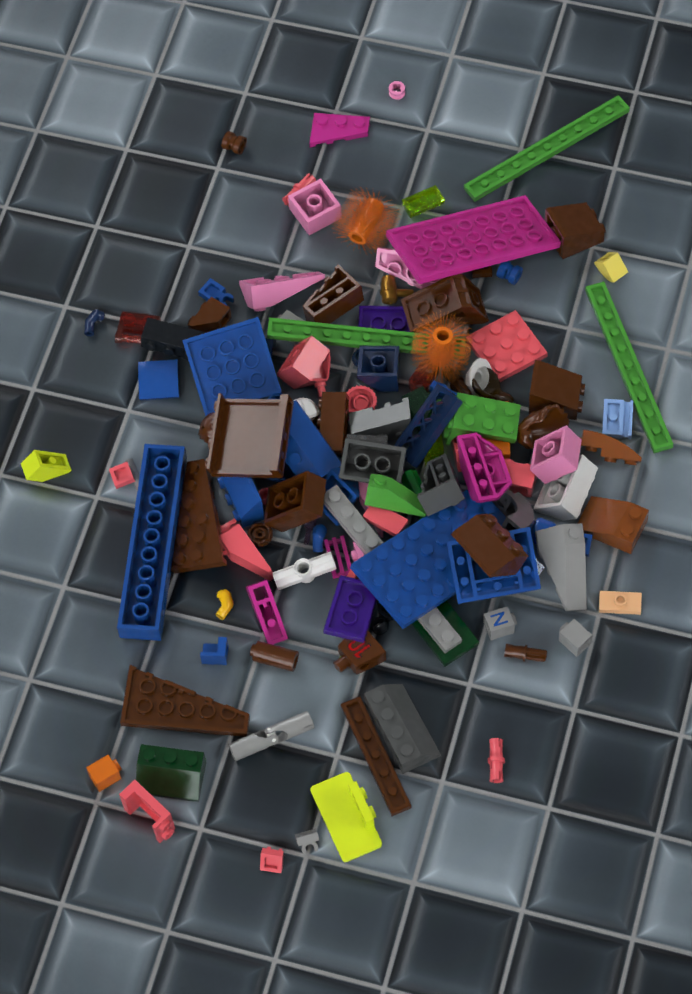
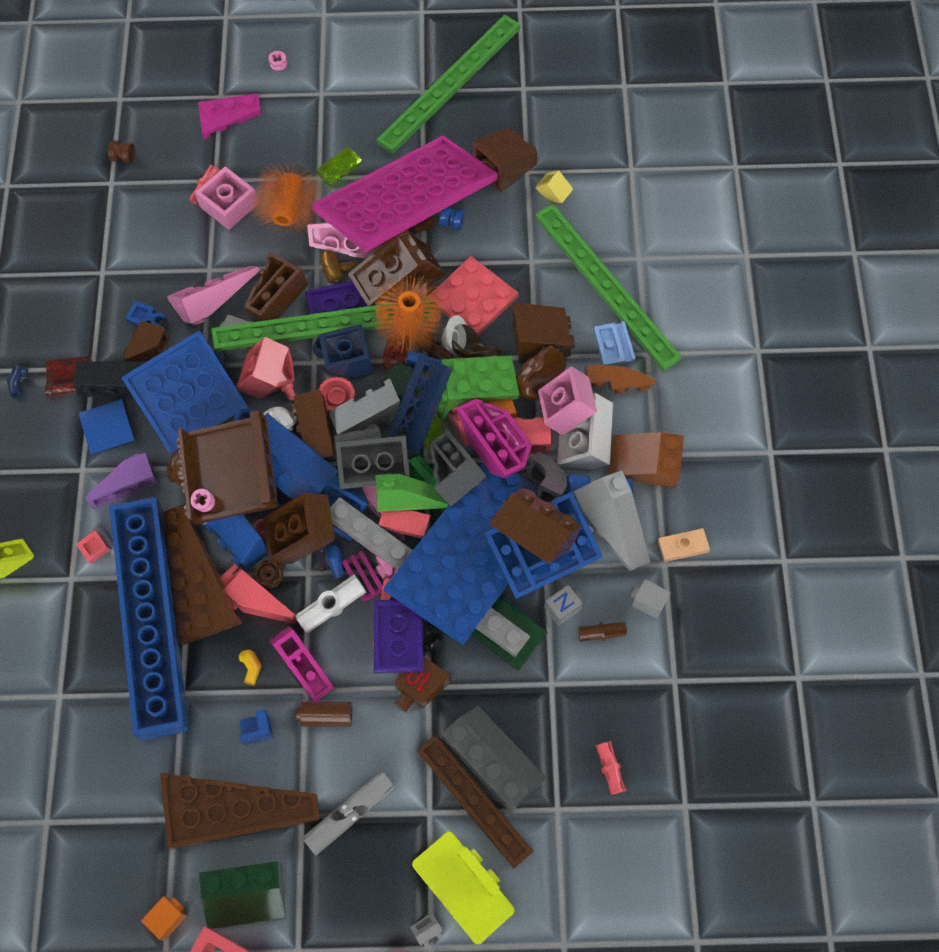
camera: 20 degrees left, 5 degrees up
(166, 426) = (126, 479): none -> medium lavender slope
(228, 458) = (195, 499): none -> bright pink bush

